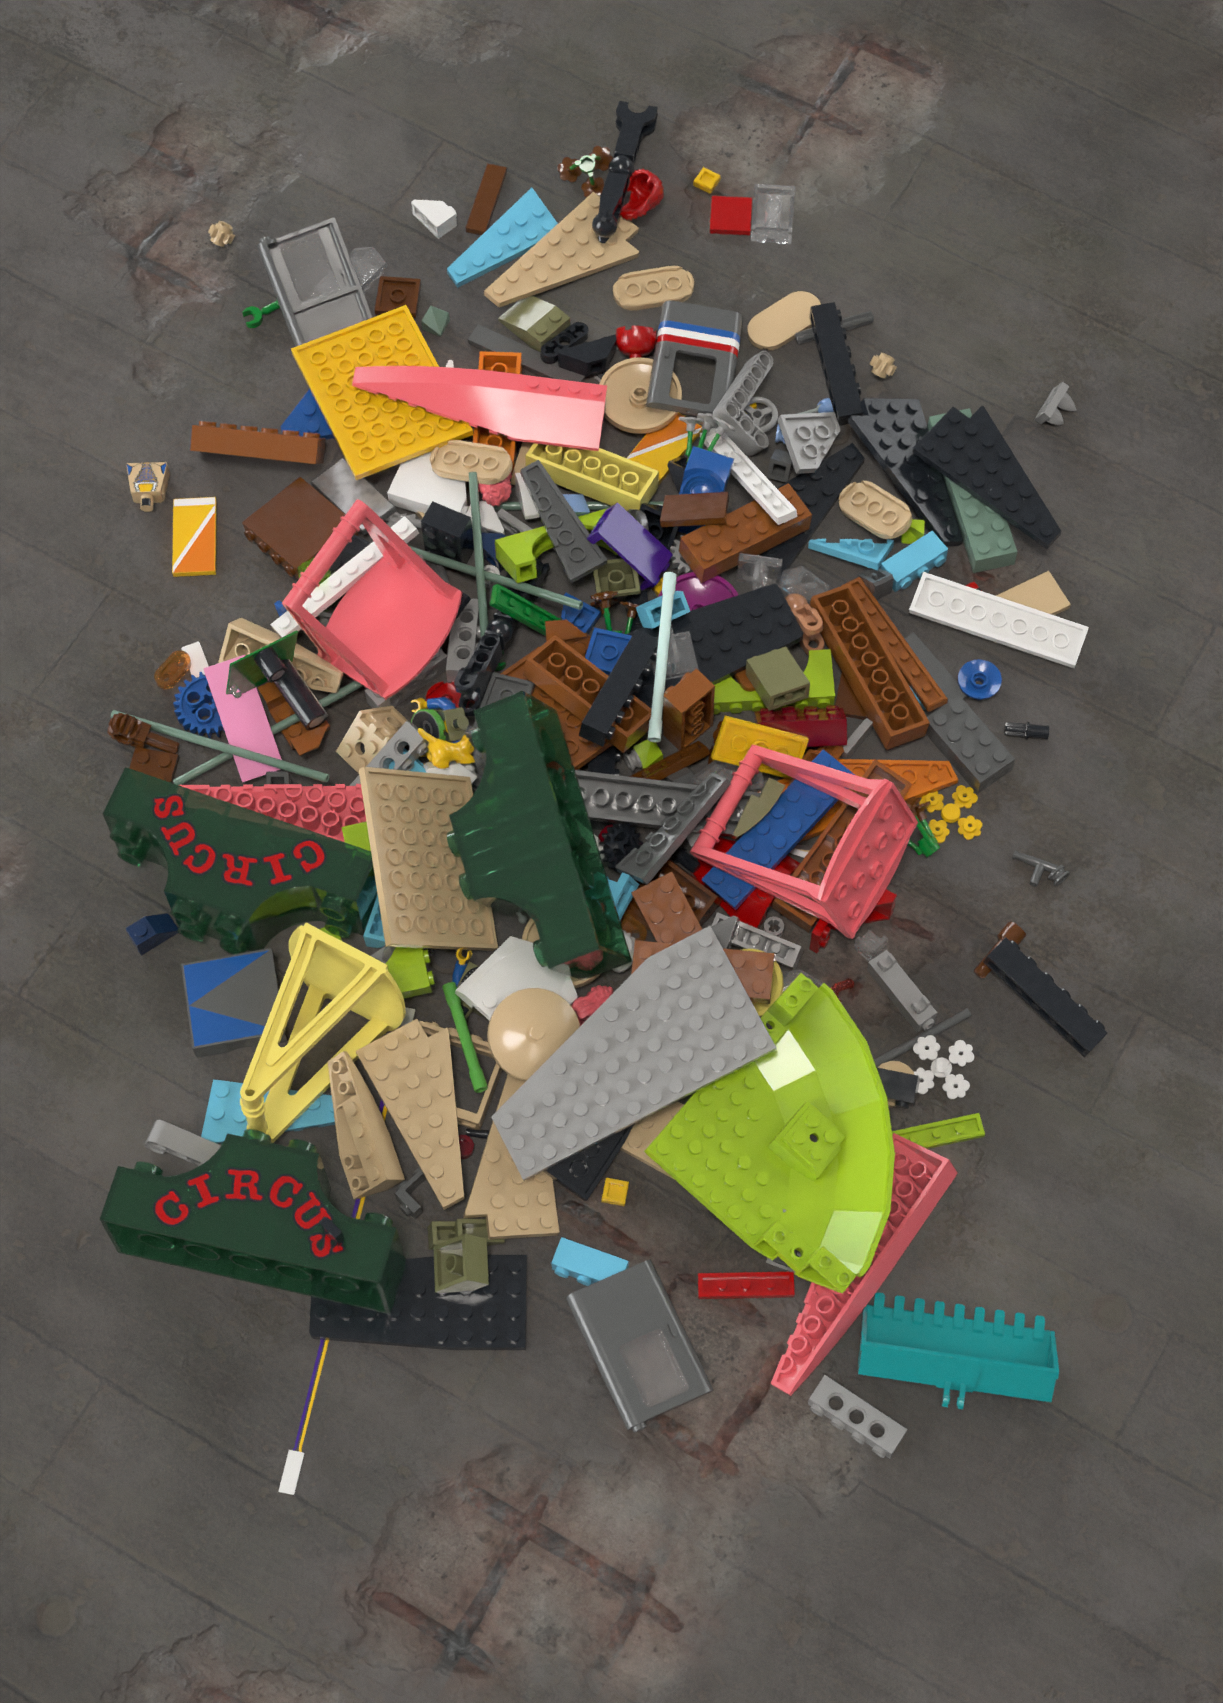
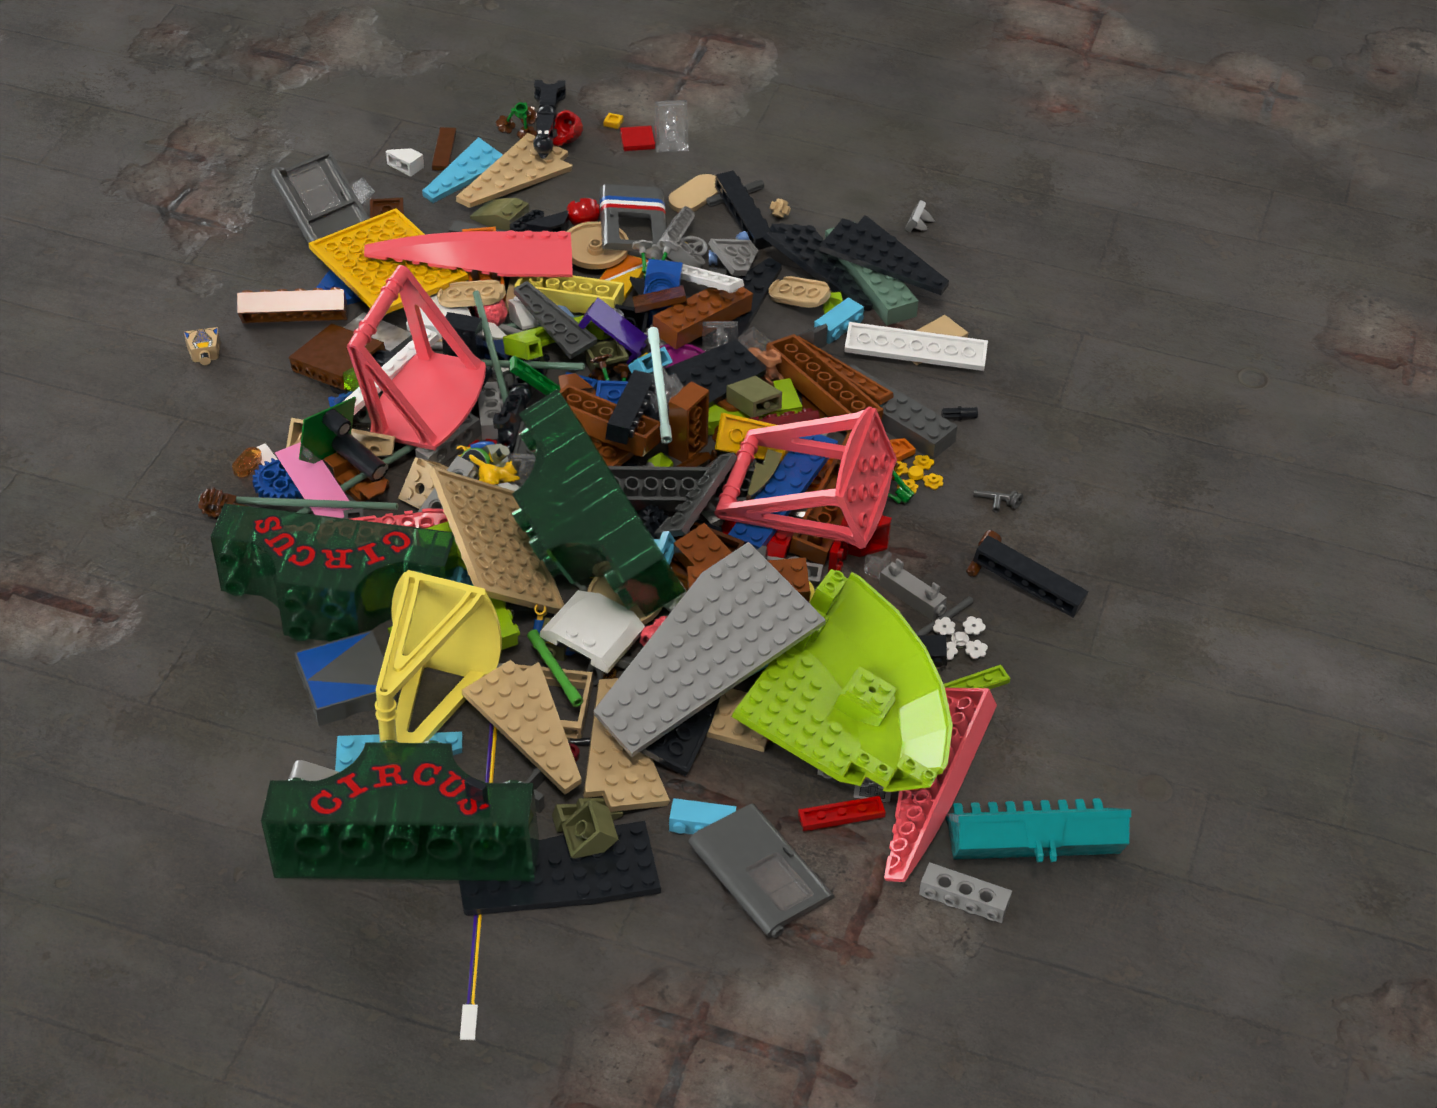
camera: 15 degrees left, 20 degrees down
(151, 931) = (260, 640): dark blue slope -> none
(194, 536) = (249, 376): tile -> none
(221, 233) = (235, 187): tan gear -> none
(257, 313) = (275, 234): green piece -> none
(361, 1132) = (474, 744): tan wedge -> none
(435, 321) = (421, 220): sand green slope -> none
(529, 1030) = (609, 646): tan dish -> none
(615, 1192) = (710, 765): yellow tile -> none
(653, 287) = (585, 185): tan tile -> none
(861, 552) = (789, 320): medium azure wing -> none
(979, 671) = (913, 385): blue dish -> none

